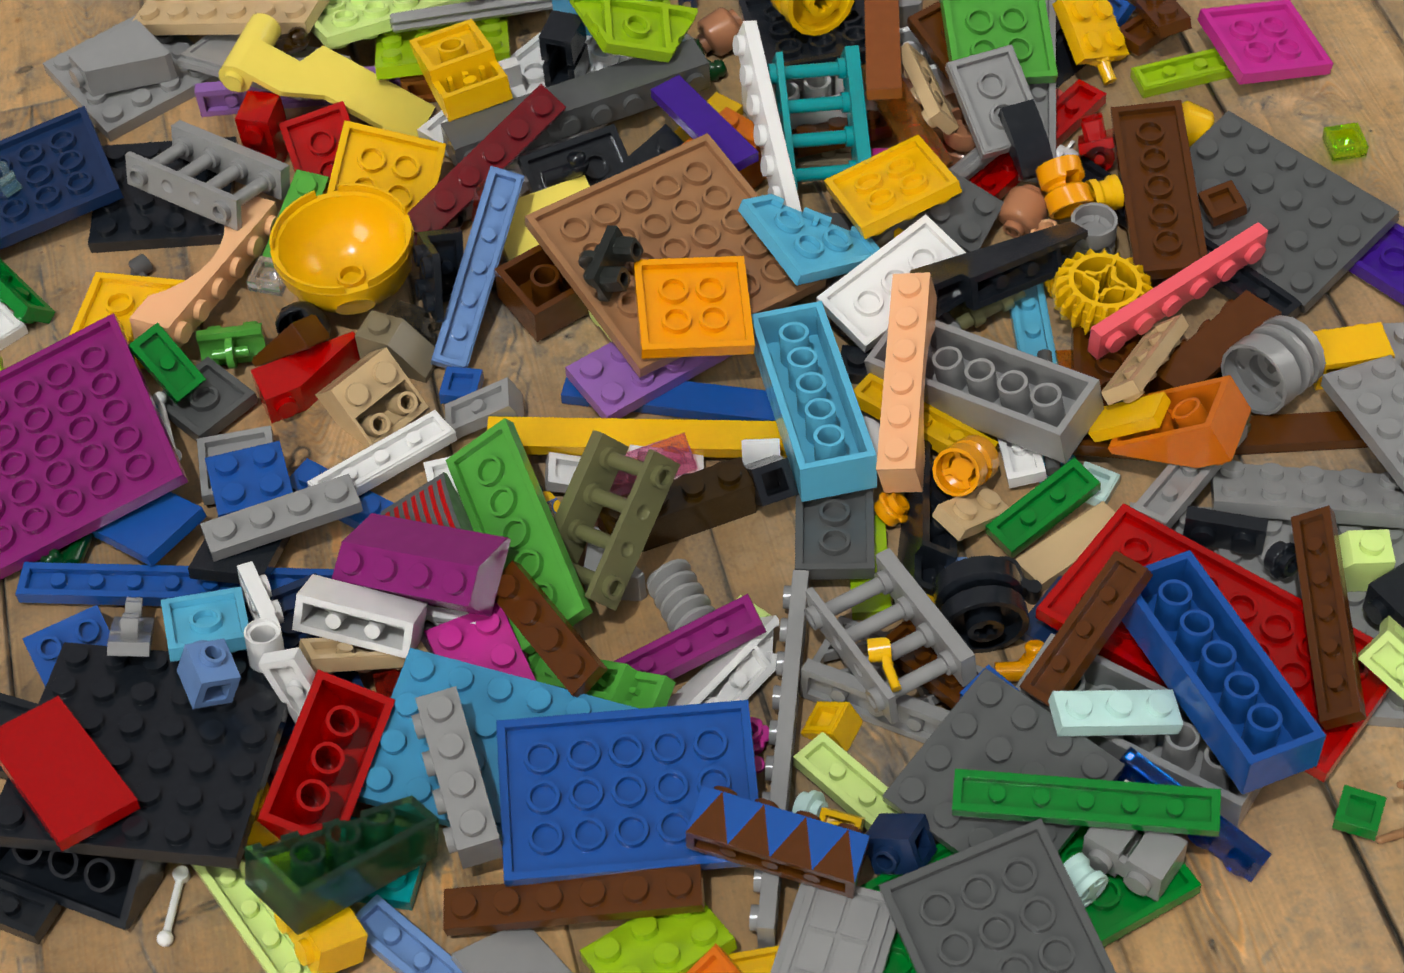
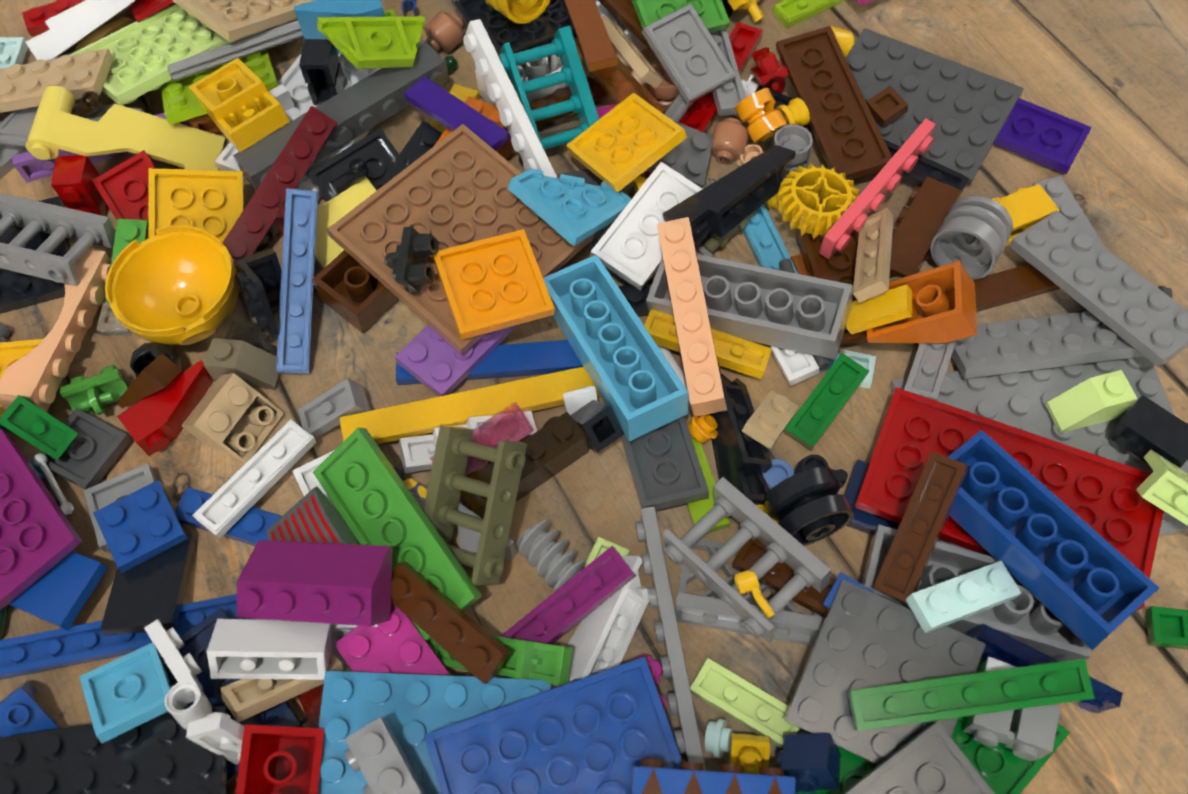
camera: 15 degrees left, 10 degrees up
(131, 633) = (59, 713): light grey plate -> none
(208, 673) = (139, 754): medium blue brick -> none
(281, 517) = (175, 560): light grey plate -> none
(460, 382) = (306, 387): blue plate -> none
(836, 720) = (710, 642): yellow slope -> none
(965, 465) = (756, 379): light orange wheel -> none
(1015, 669) = (855, 550): light orange arm -> none
(1027, 137) = (722, 79): black slope -> none
(1062, 549) = (856, 429): tan tile -> none
(1086, 880) = (983, 760): light aqua wheel -> none
(1226, 530) = (984, 394): black plate -> none
(1281, 560) = (1037, 410): black plate -> none
(1328, 619) = (1102, 463): reddish brown plate -> none
(1345, 141) = (953, 37): clear neon green plate -> none

